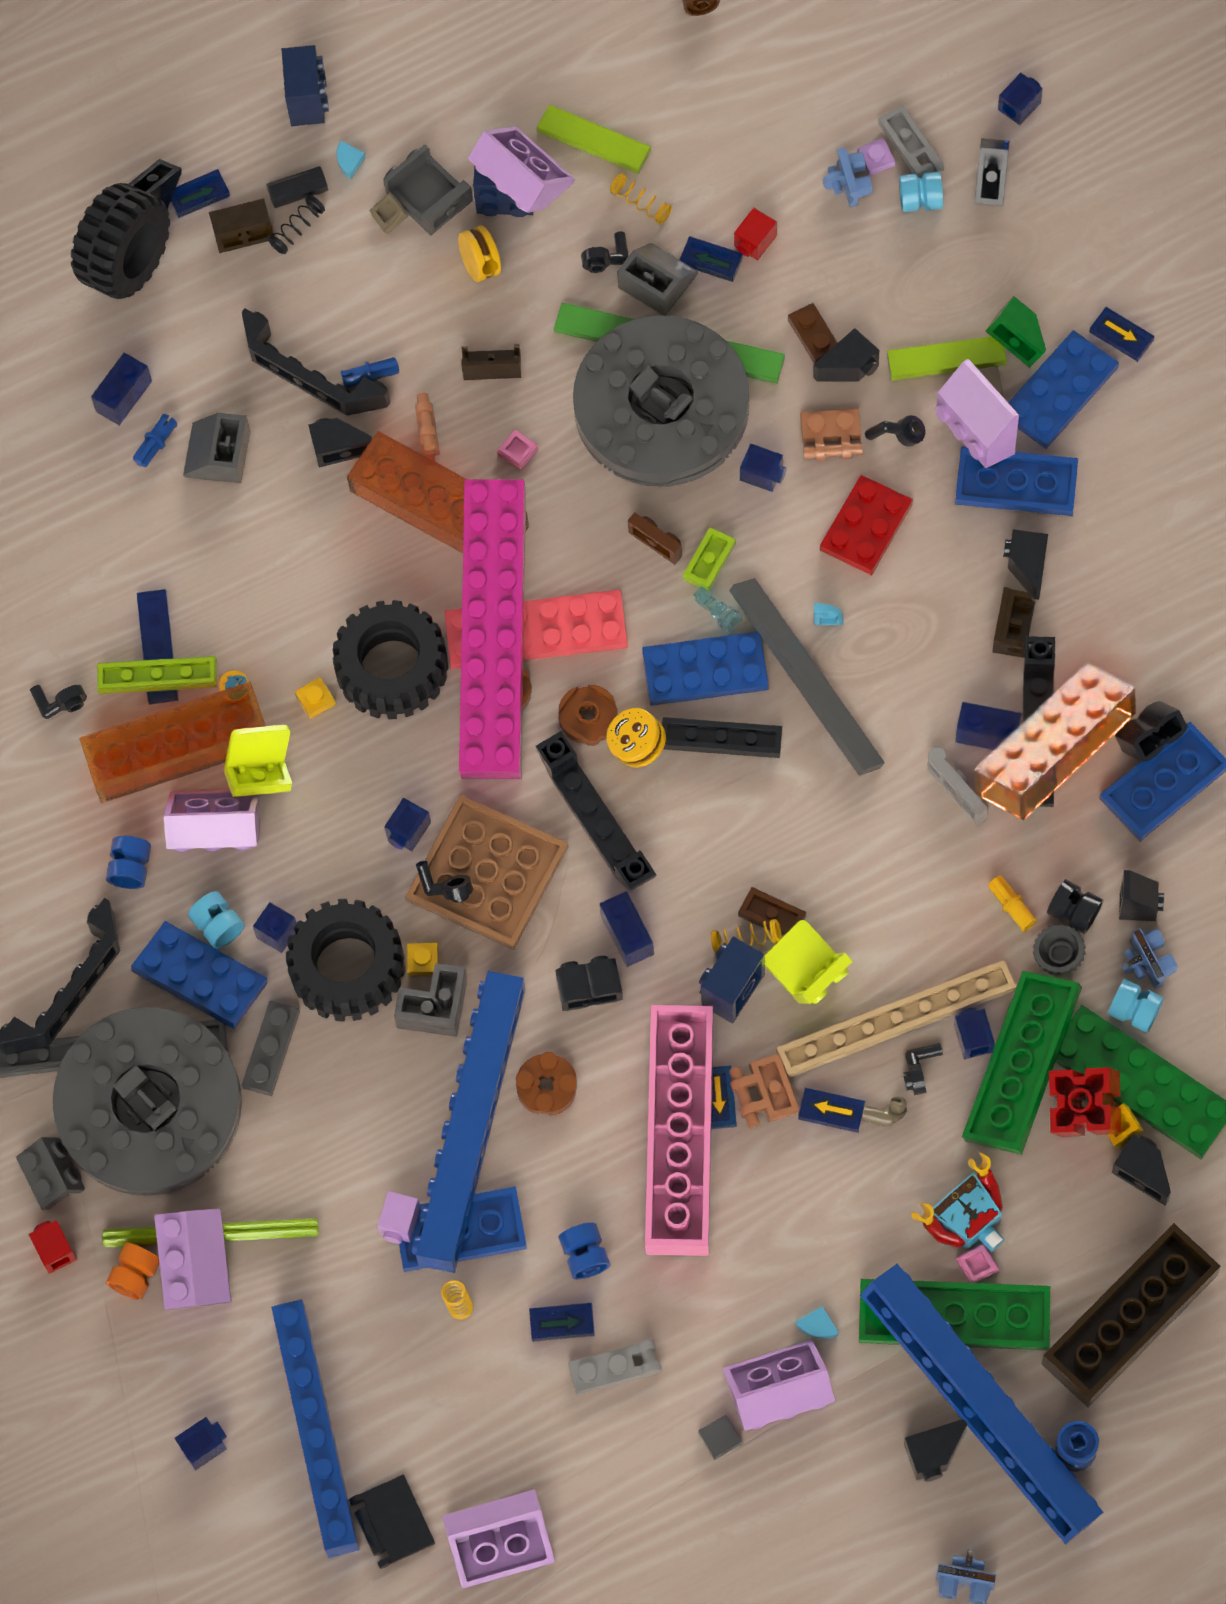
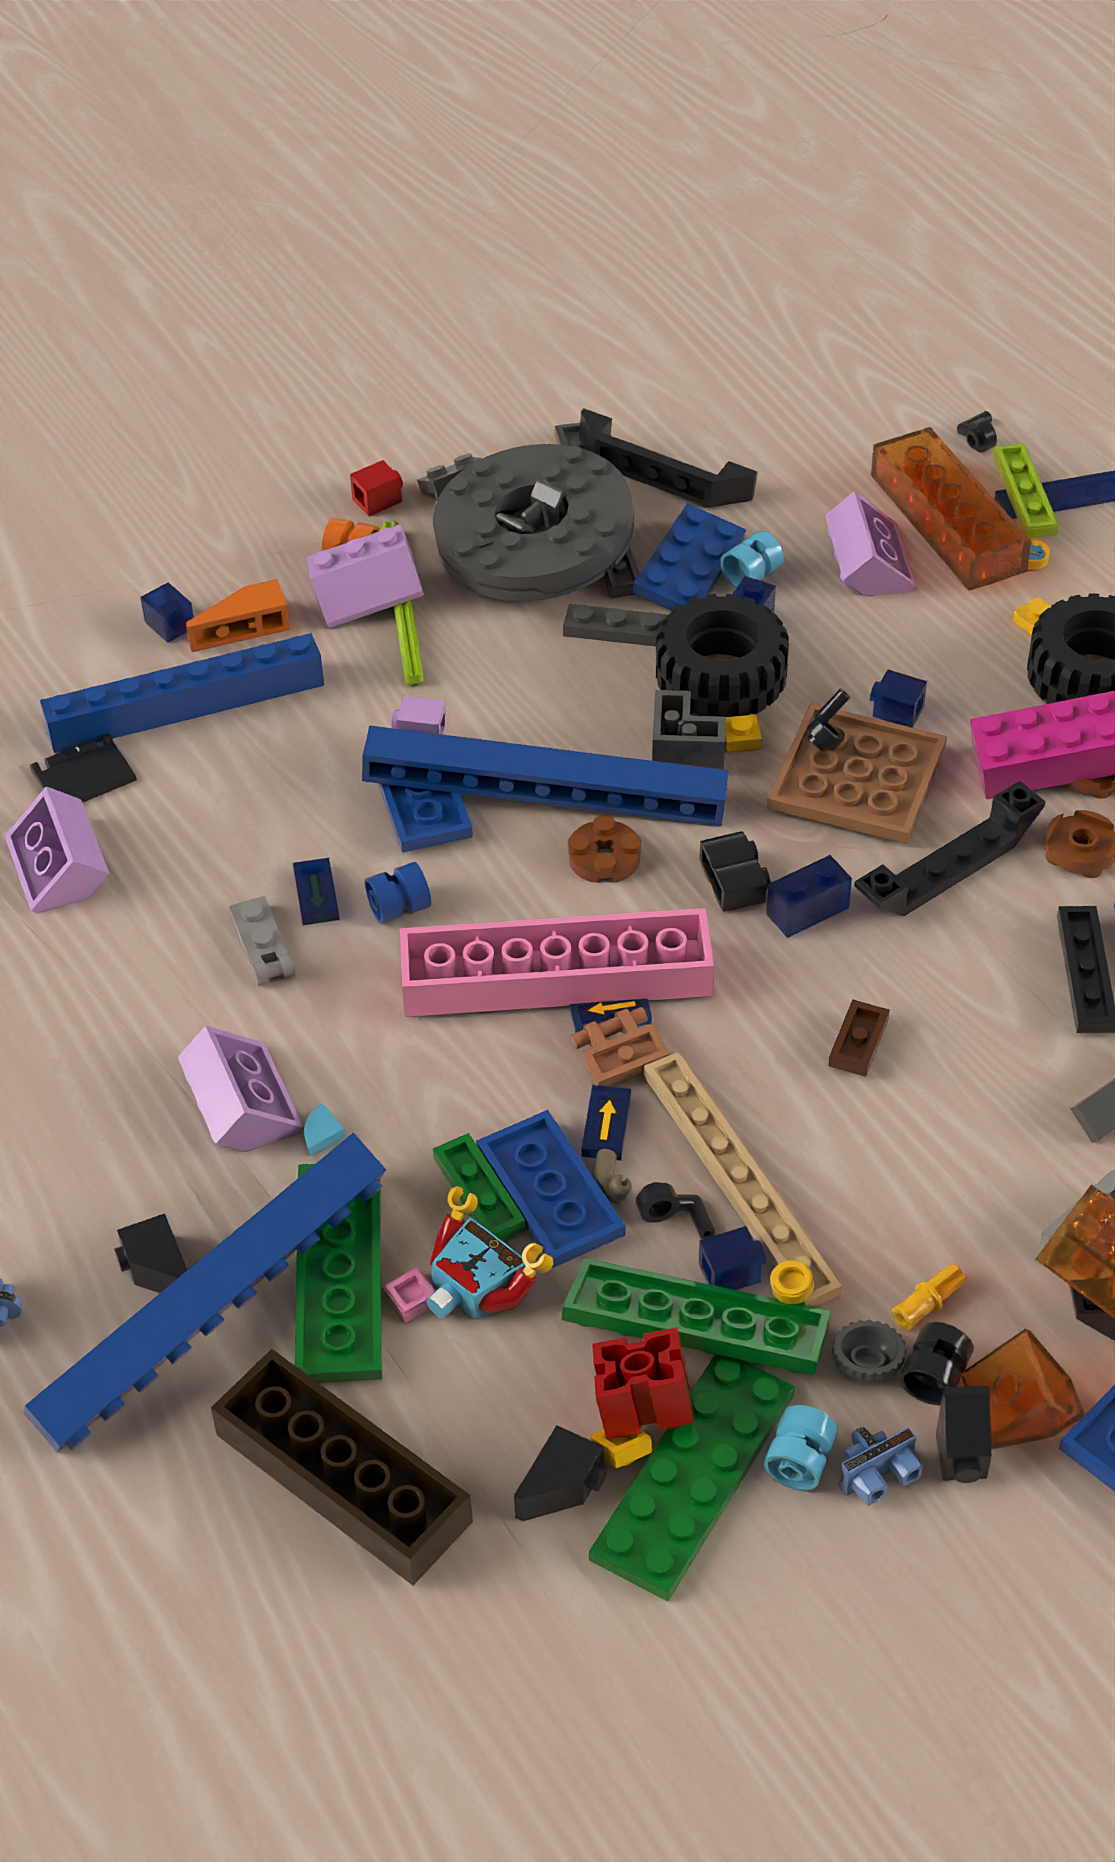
camera: 80 degrees right, 20 degrees down
(128, 862) = (804, 491): blue wheel -> none
(212, 1366) = (241, 616): none -> orange slope
(257, 761) = (943, 565): neon yellow bracket -> none
(465, 1297) = (327, 761): yellow piece -> none
(636, 737) = (1060, 880): yellow head -> none
(720, 1437) = (172, 1043): dark grey tile -> none
(732, 978) = (756, 991): dark blue brick -> none
(774, 928) = (803, 997): yellow piece -> none
(806, 963) = (796, 1069): neon yellow bracket -> none
(888, 1208) = (467, 1168): none -> green plate
(893, 1156) = (551, 1188): none -> blue plate
(1002, 992) = (792, 1282): none -> yellow tile
(1077, 1445) = (155, 1412): blue wheel -> none
(1101, 855) = (1027, 1391): none -> clear orange slope

